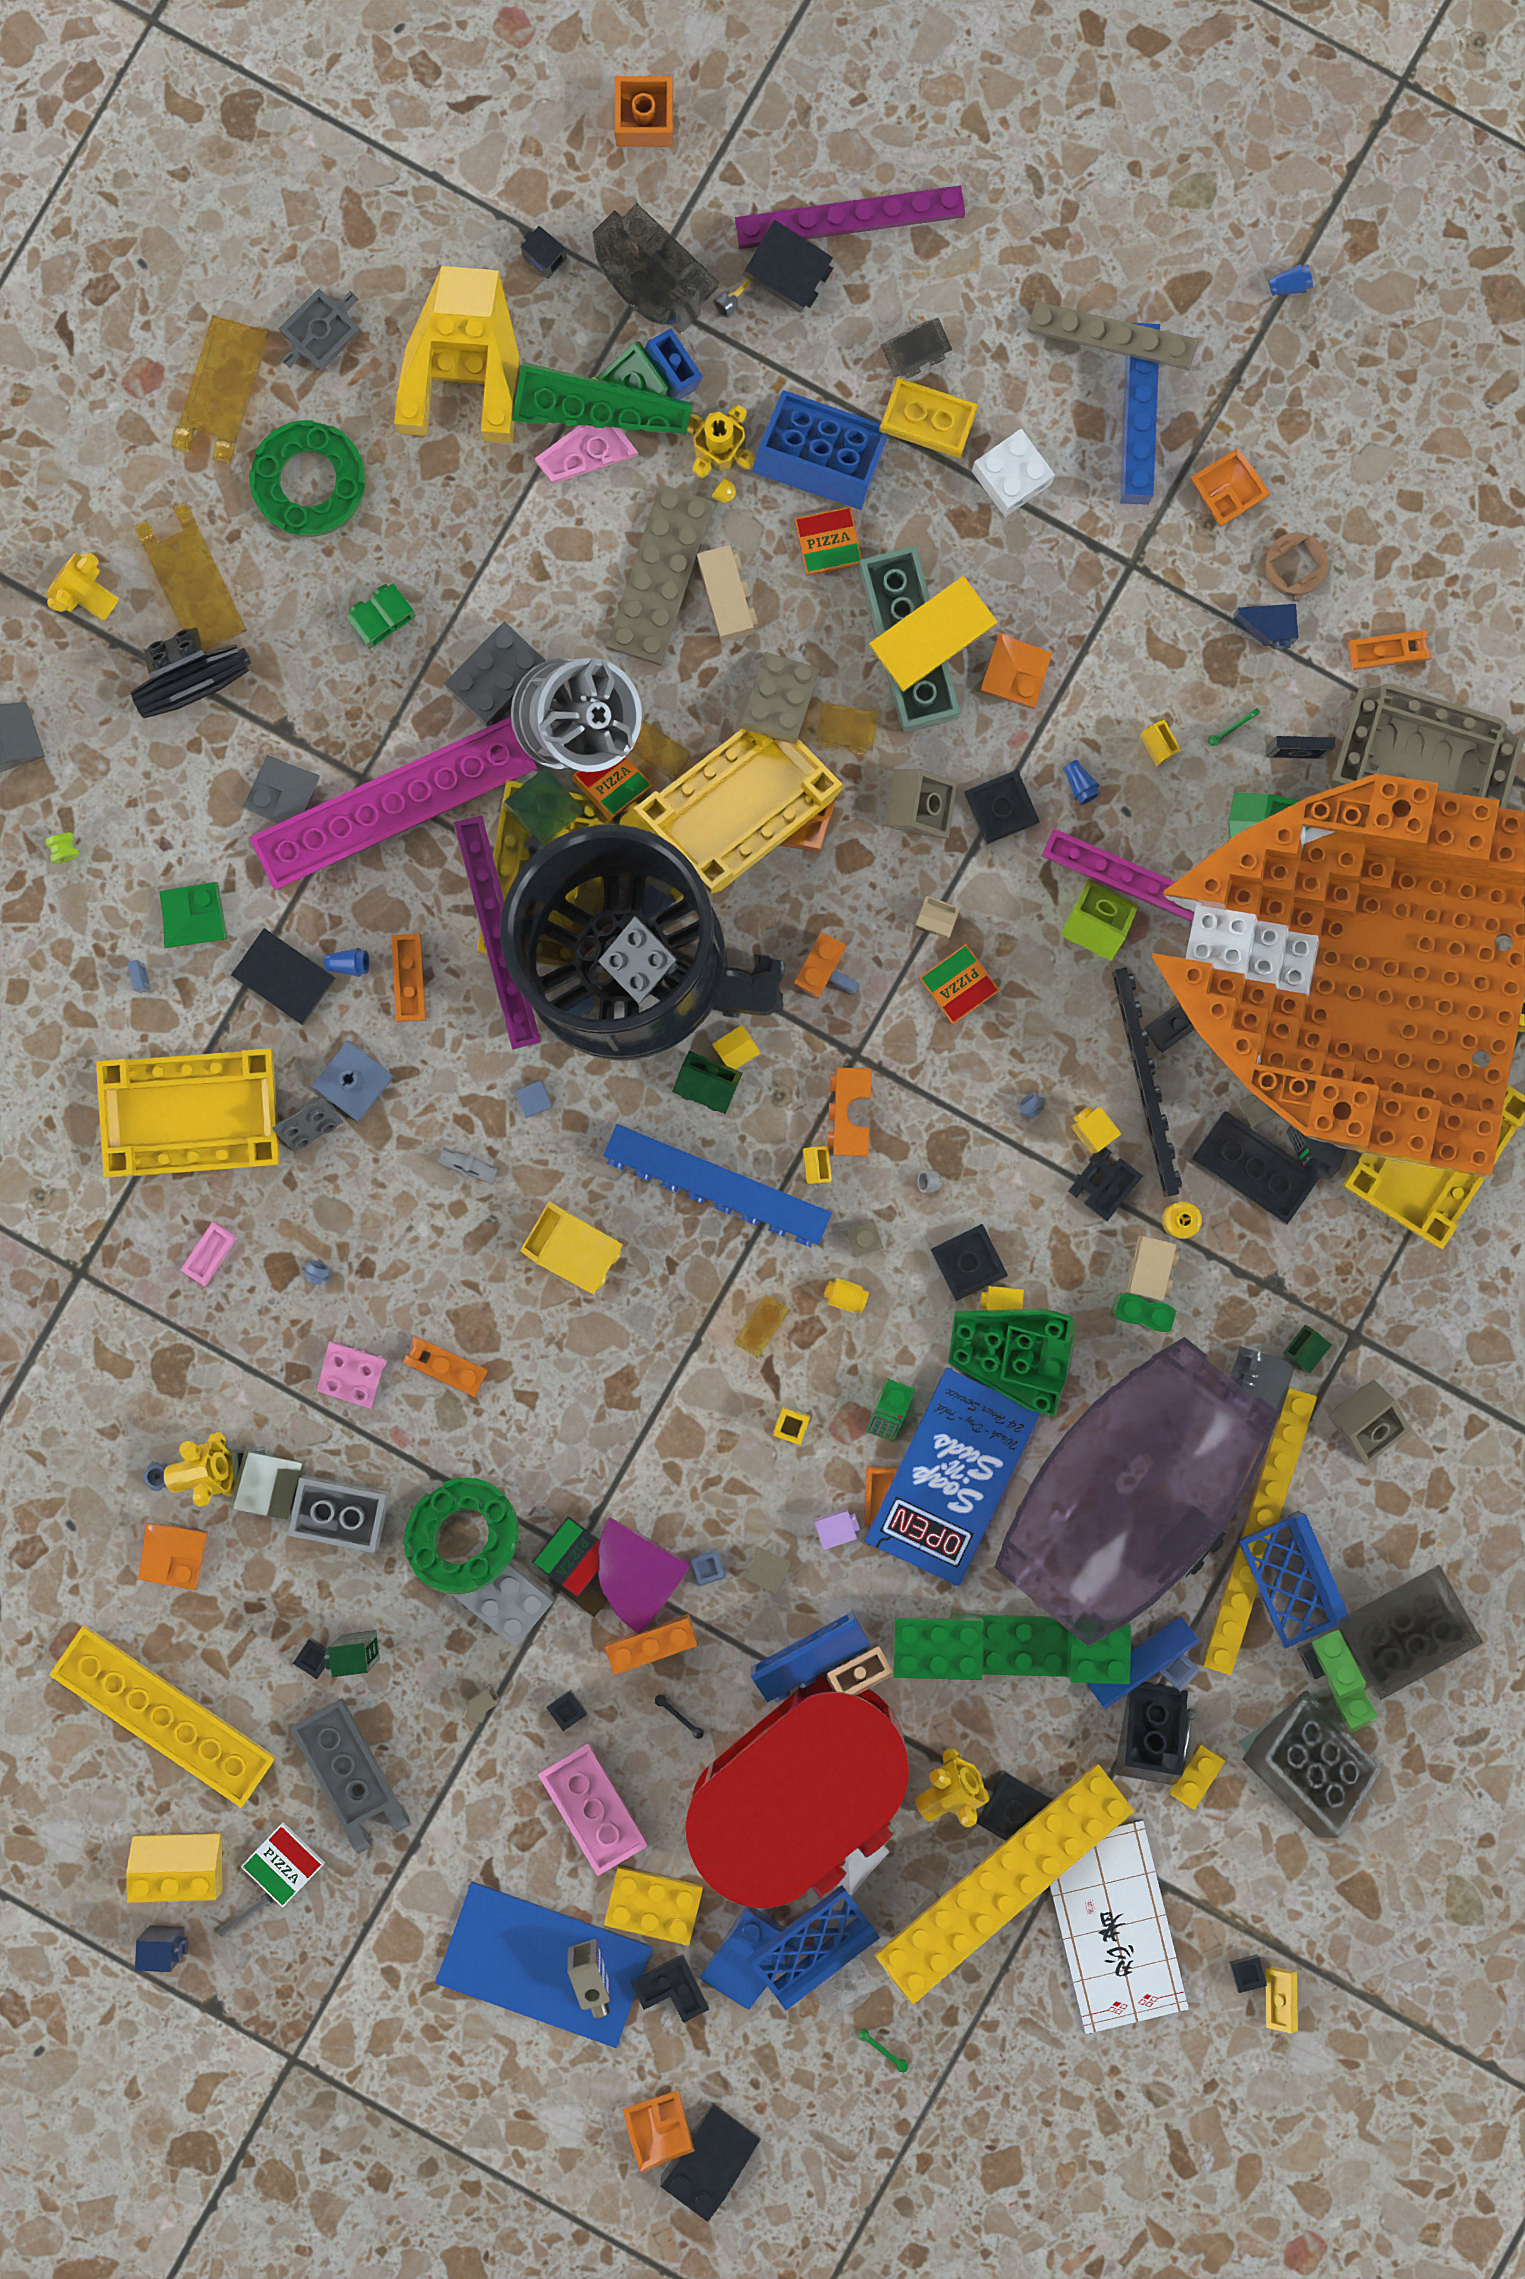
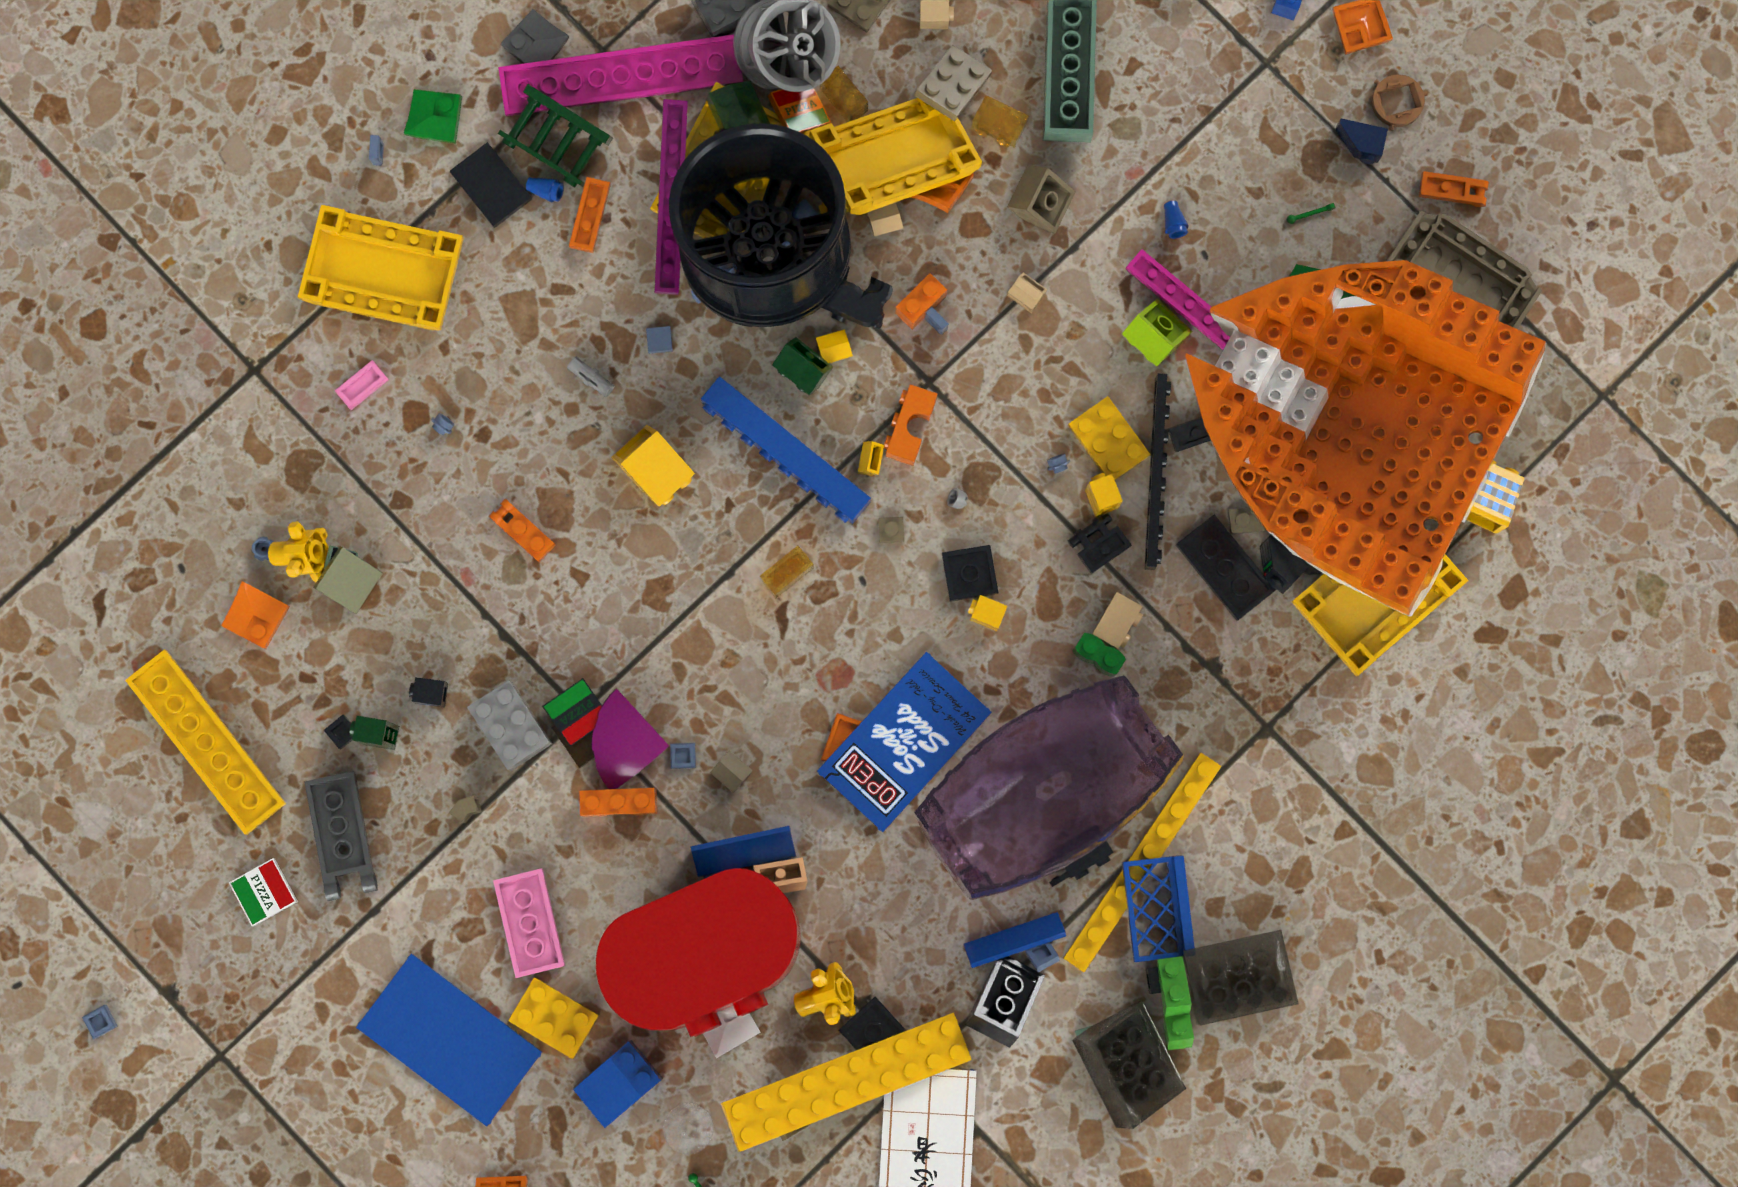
camera: 20 degrees right, 5 degrees down
(62, 848) = (348, 33): lime wheel -> none
(145, 2064) = (99, 1021): none -> sand blue tile
(160, 1948) = (143, 927): dark blue brick -> none
(174, 1867) = (175, 866): yellow slope -> none
(265, 1900) = (240, 917): dark grey piece -> none
(308, 1124) = (473, 304): dark grey hinge -> none
(339, 1513) = (399, 620): light grey brick -> none
(351, 1374) = (444, 513): bright pink hinge -> none
(353, 1081) = (520, 283): sand blue tile -> none
(361, 879) = (575, 125): none -> dark green fence
(397, 1584) = (428, 692): none -> black brick
(434, 1509) = (498, 695): green plate -> none
(567, 1710) = (533, 836): black plate -> none
(589, 1977) = (484, 1049): dark tan torso -> none
(638, 960) = (774, 233): hinge -> none
(660, 1700) = (633, 887): black hinge -> none
(675, 1981) = (552, 1084): black plate -> none
(751, 884) = (885, 219): none -> tan piece
(791, 1425) = (786, 659): yellow brick -> none
(822, 1959) = (678, 1102): blue fence -> none
(836, 1528) = (797, 754): lavender brick -> none
(846, 1295) = (862, 570): yellow brick -> none
(890, 1409) = (870, 672): green slope -> none
(933, 633) = (1089, 65): yellow tile -> none
(959, 984) = (1028, 350): tile -> none
(1001, 807) = (1105, 221): black tile -> none
(1005, 1645) = (907, 893): green bracket -> none
(1016, 671) = (1148, 118): orange plate -> none
(1016, 1353) = (987, 655): green wedge -> none
(1080, 1060) = (1109, 439): none -> yellow plate
(1160, 742) = (1247, 207): yellow piece -> none
(1171, 1221) = (1149, 597): yellow head -> none
(1191, 1714) = (1040, 996): dark grey hinge -> none
(1197, 1776) = (1031, 1048): yellow plate -> none
(1263, 1375) = (1186, 735): dark grey hinge -> none
(1300, 747) = (1358, 242): black tile -> none
(1307, 1349) = (1224, 725): dark green piece -> none
(1370, 1421) = (1259, 799): dark tan slope -> none

